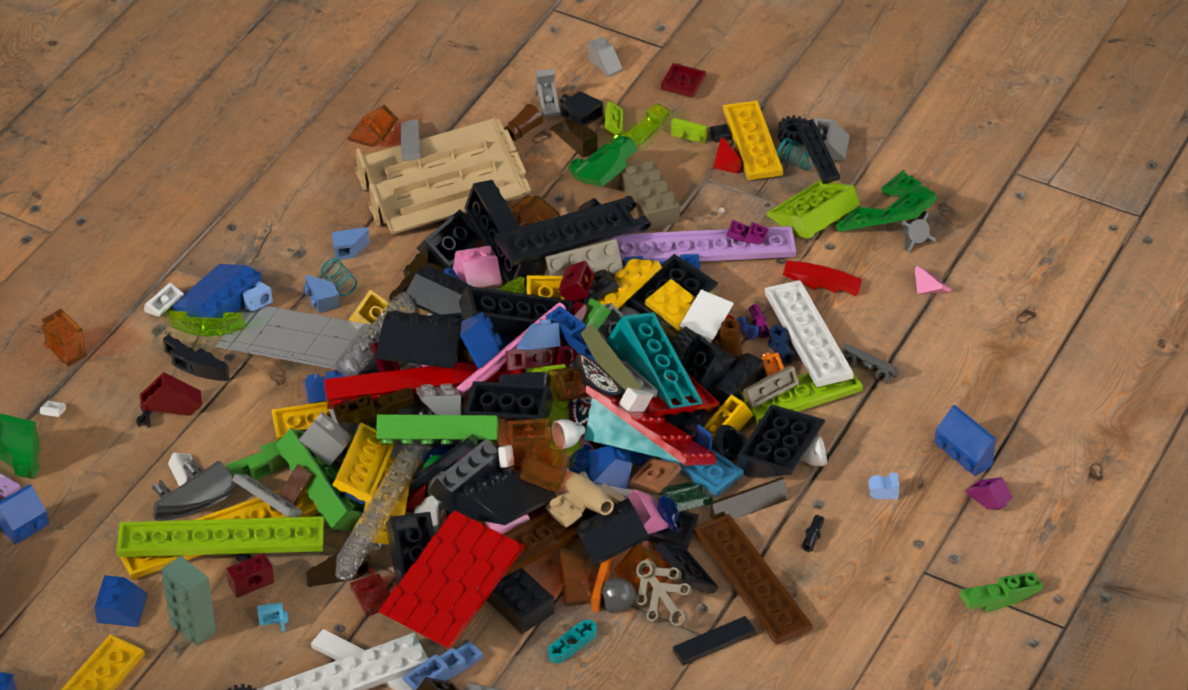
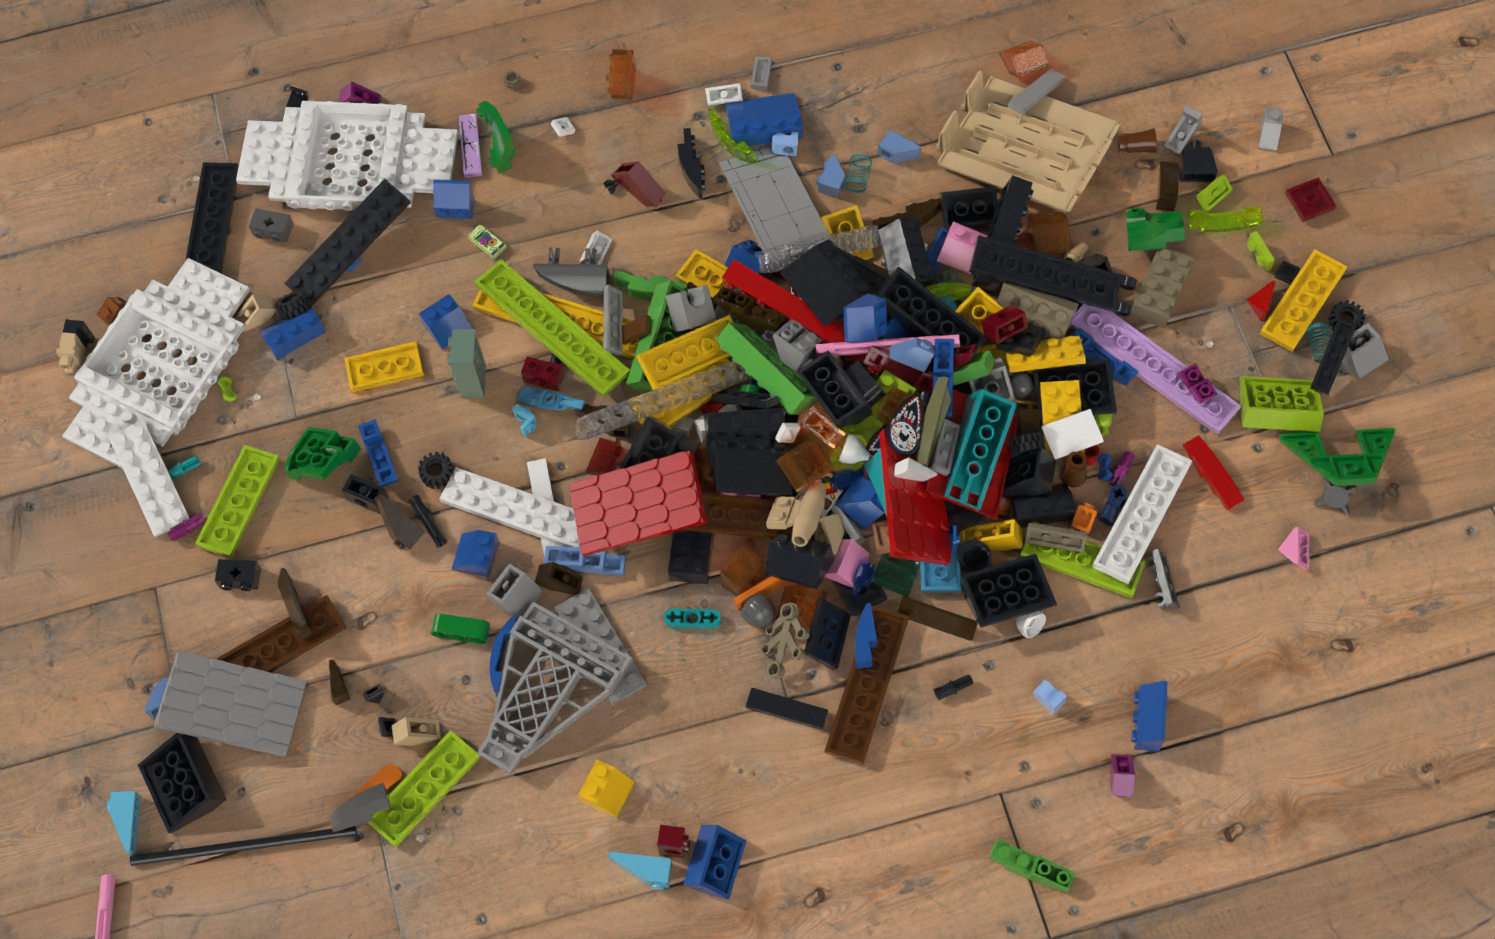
camera: 50 degrees right, 20 degrees up
(84, 528) = (487, 241): none -> tile
(175, 269) = (761, 73): none -> light grey tile
(270, 592) = (540, 399): none -> dark azure piece
(718, 546) = (865, 639): none -> blue slope

